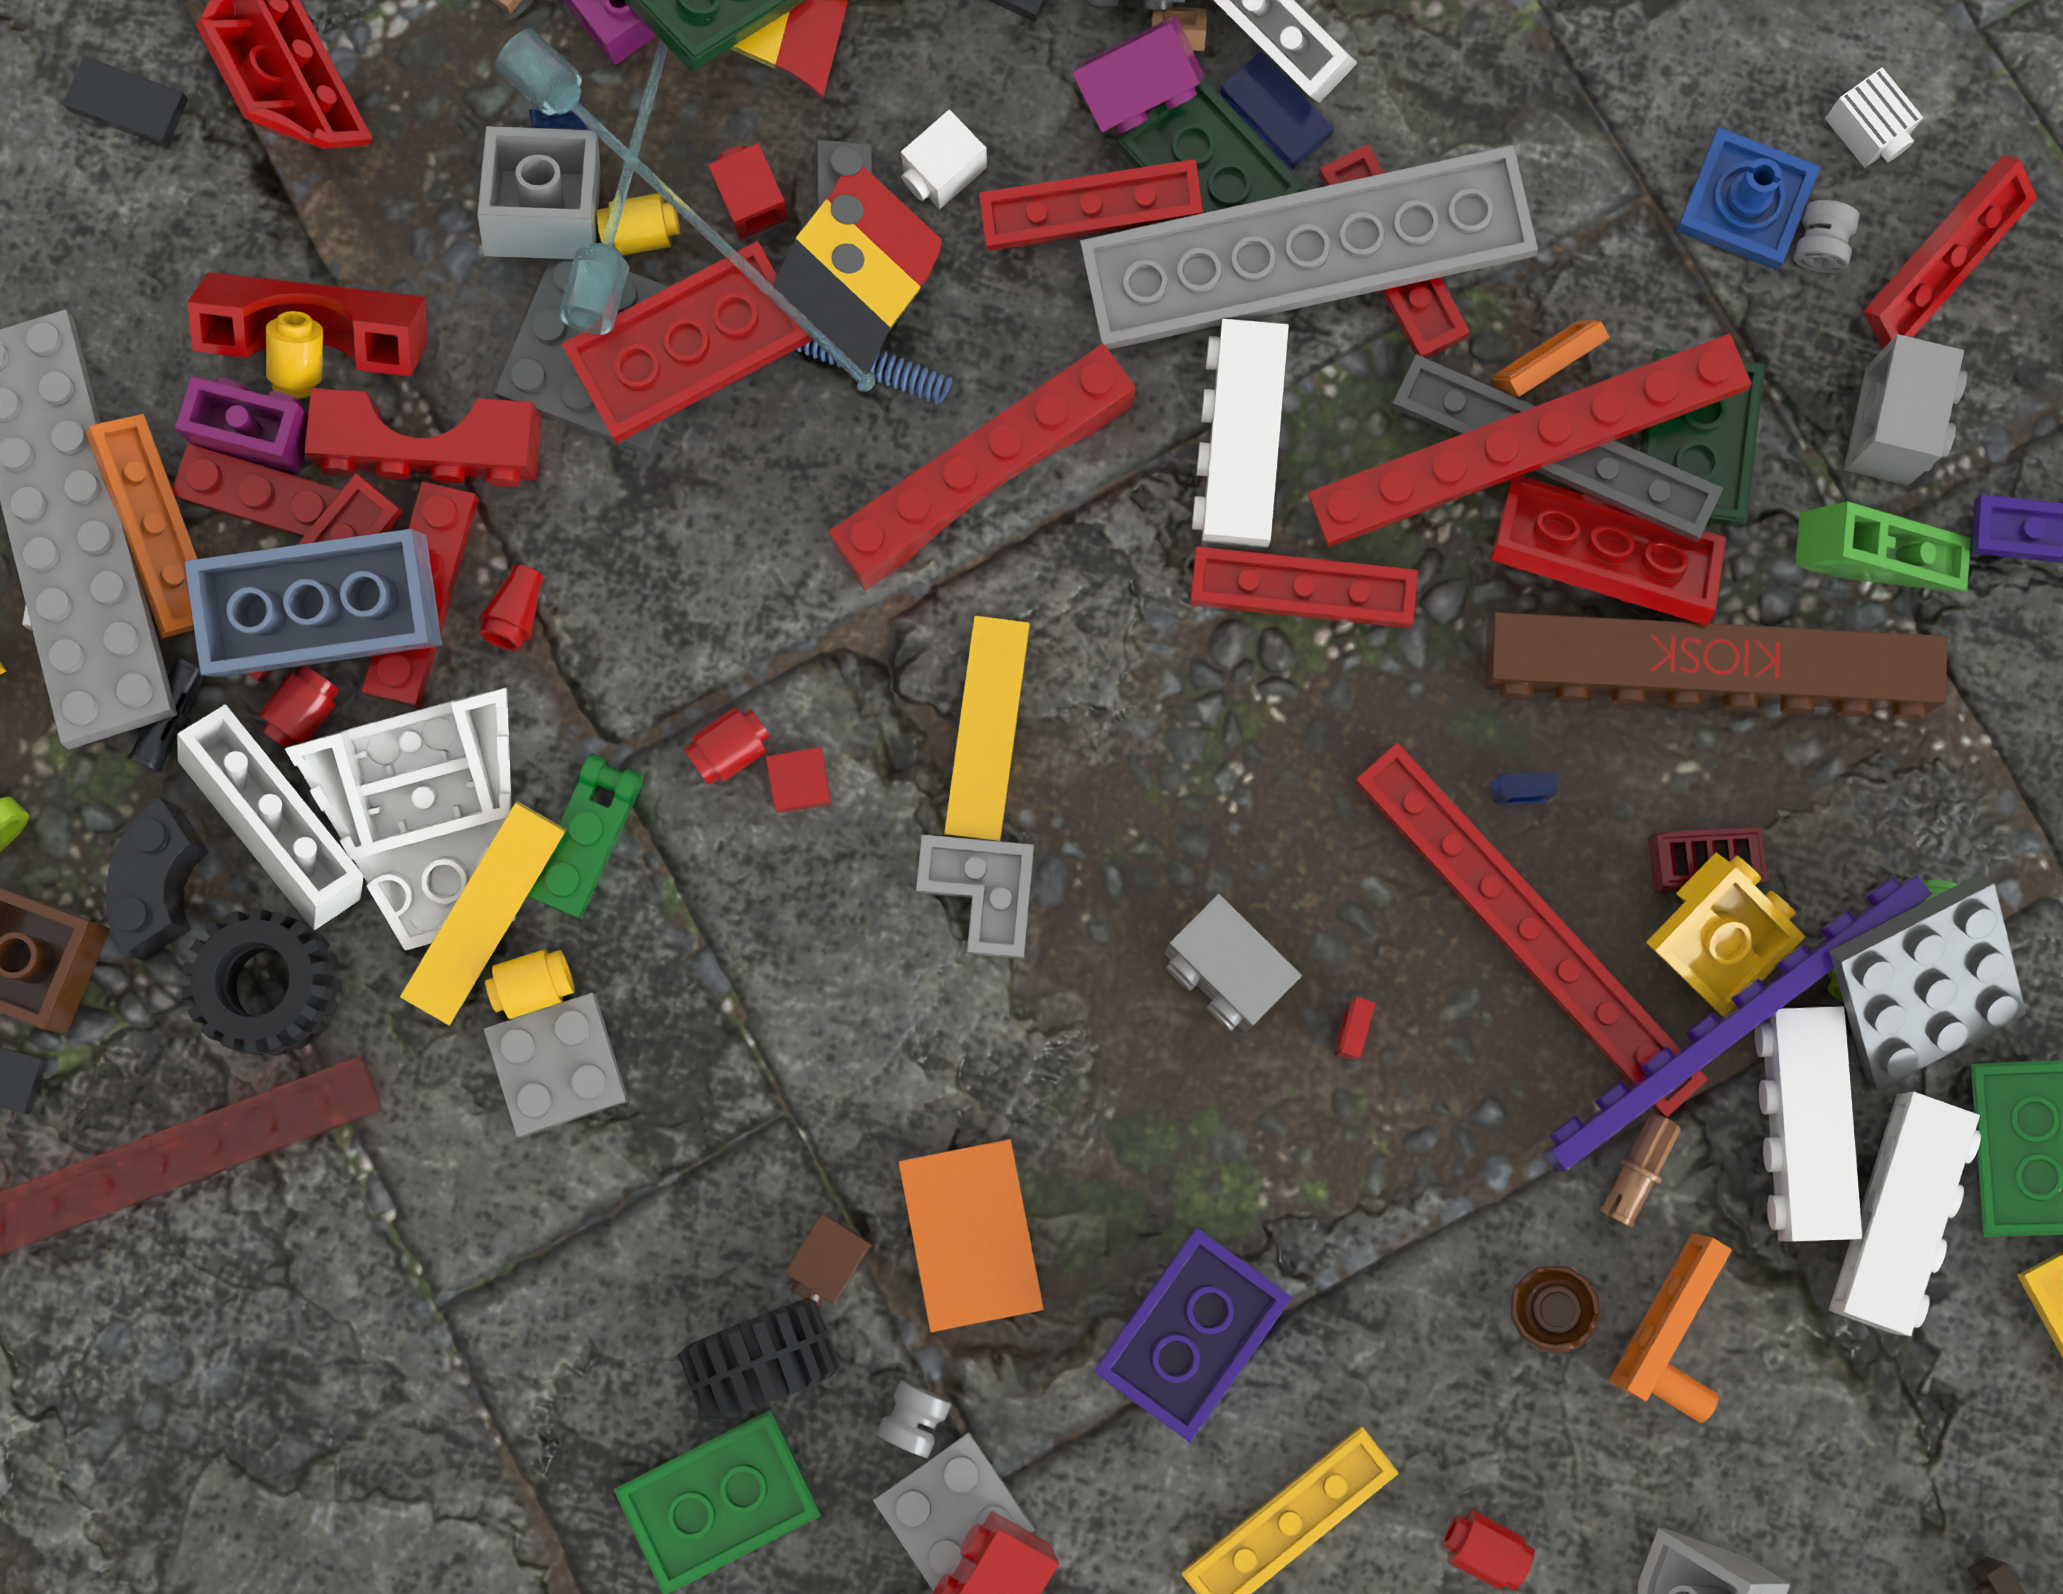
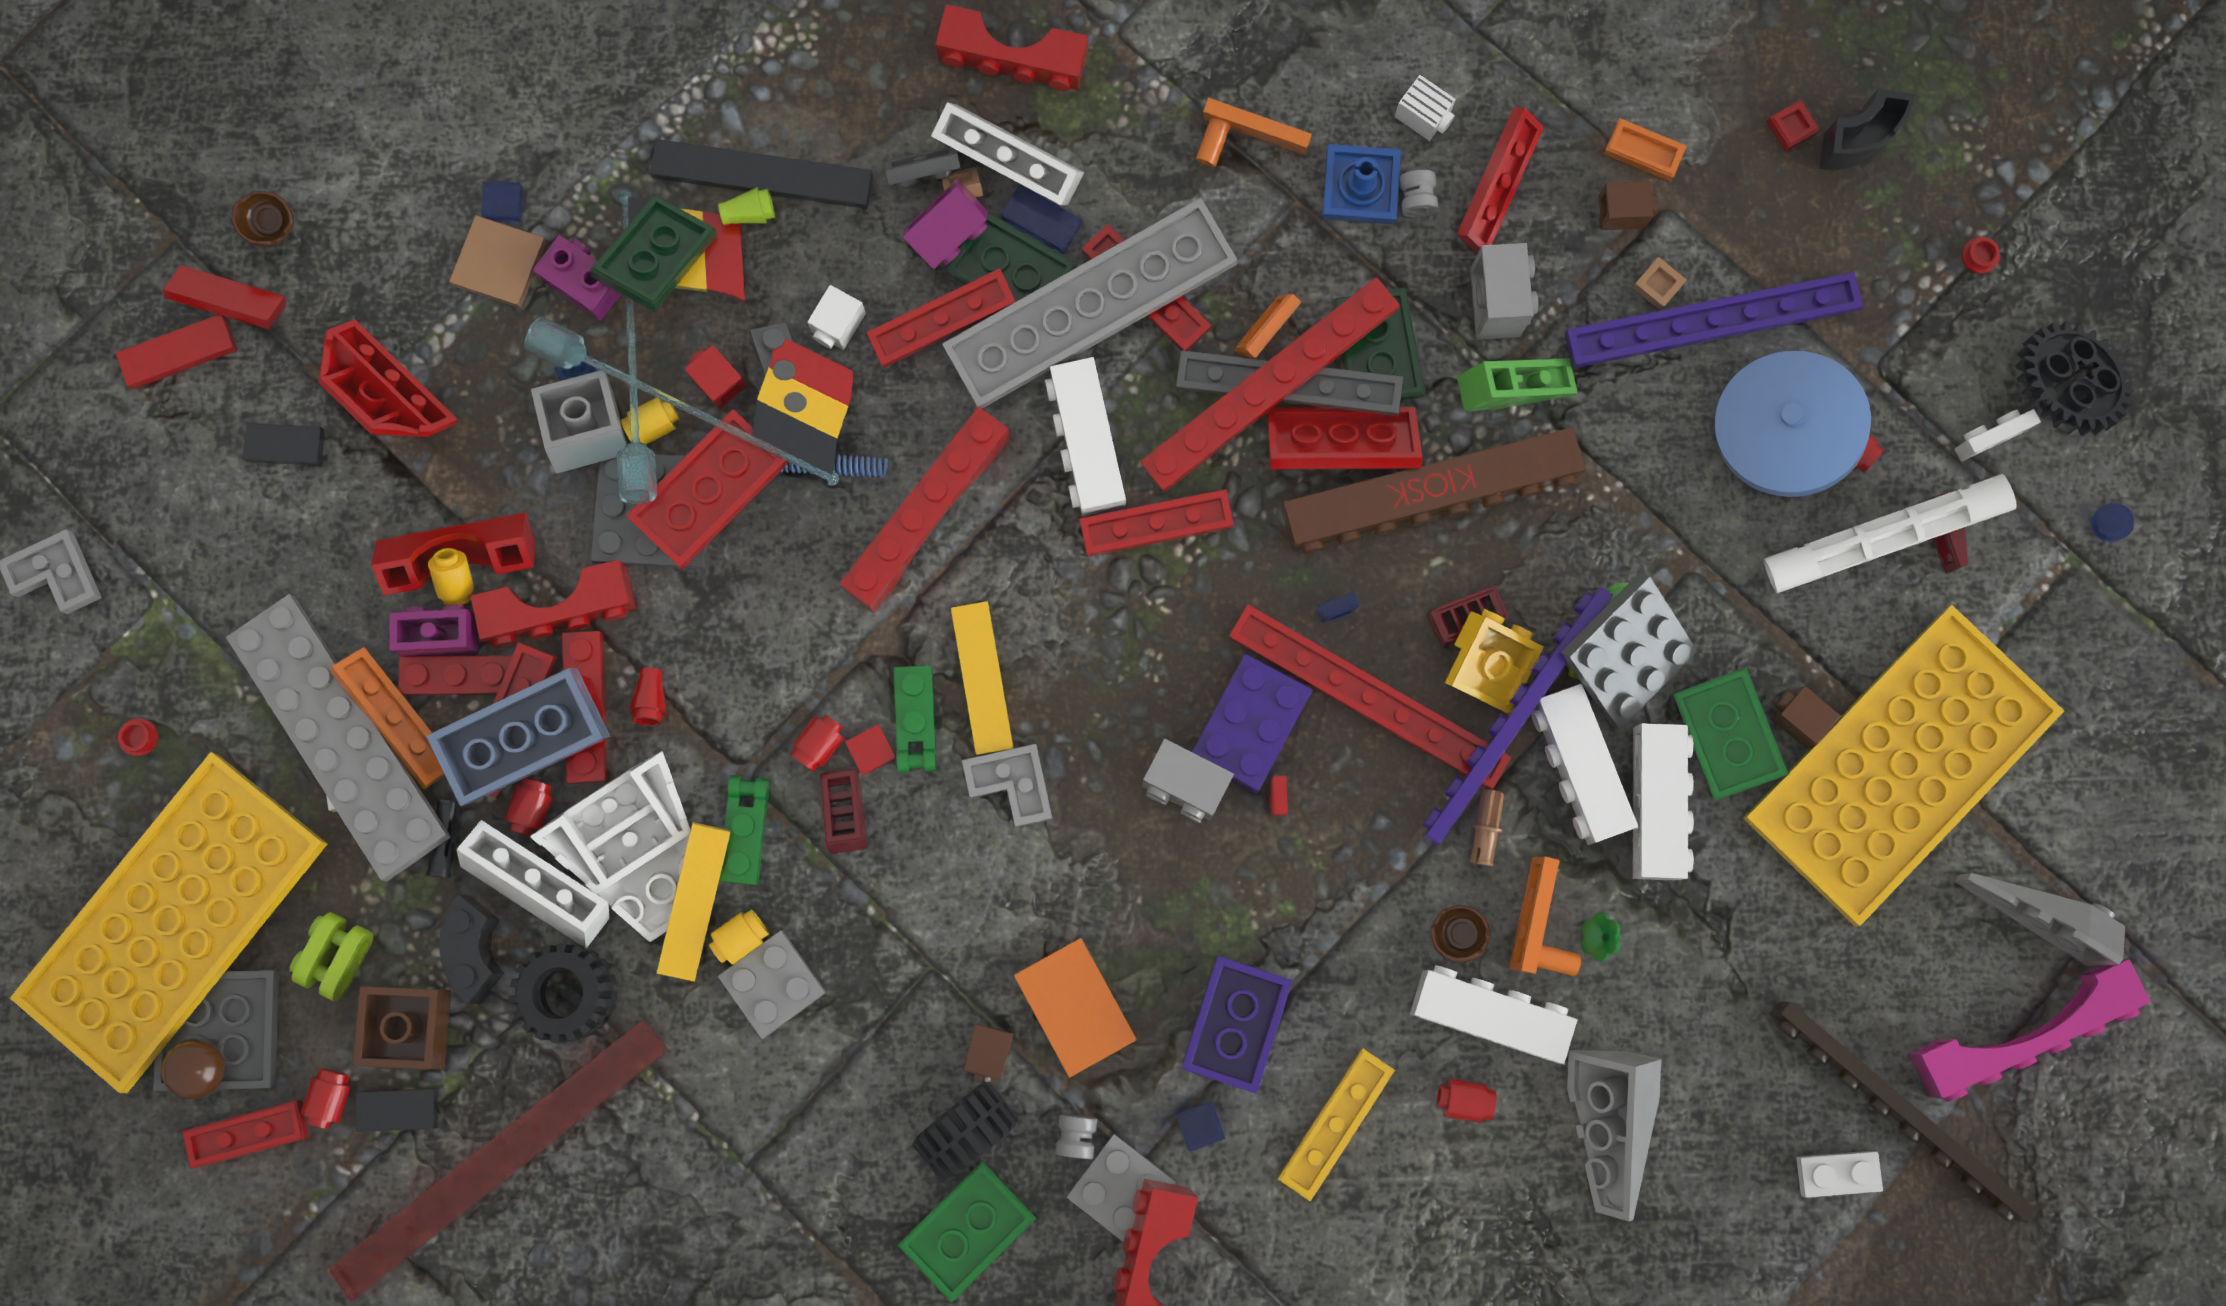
camera: 20 degrees left, 0 degrees up
(728, 899) = (845, 842): none -> dark red slope
(875, 754) = (915, 717): none -> green plate
(1095, 1462) = (1200, 1126): none -> clear blue tile
(1351, 911) = (1252, 722): none -> dark purple brick
(1565, 1442) = (1494, 1016): none -> white brick
(1584, 45) = (1226, 117): none -> orange piece
(1756, 1379) = (1601, 937): none -> green plant

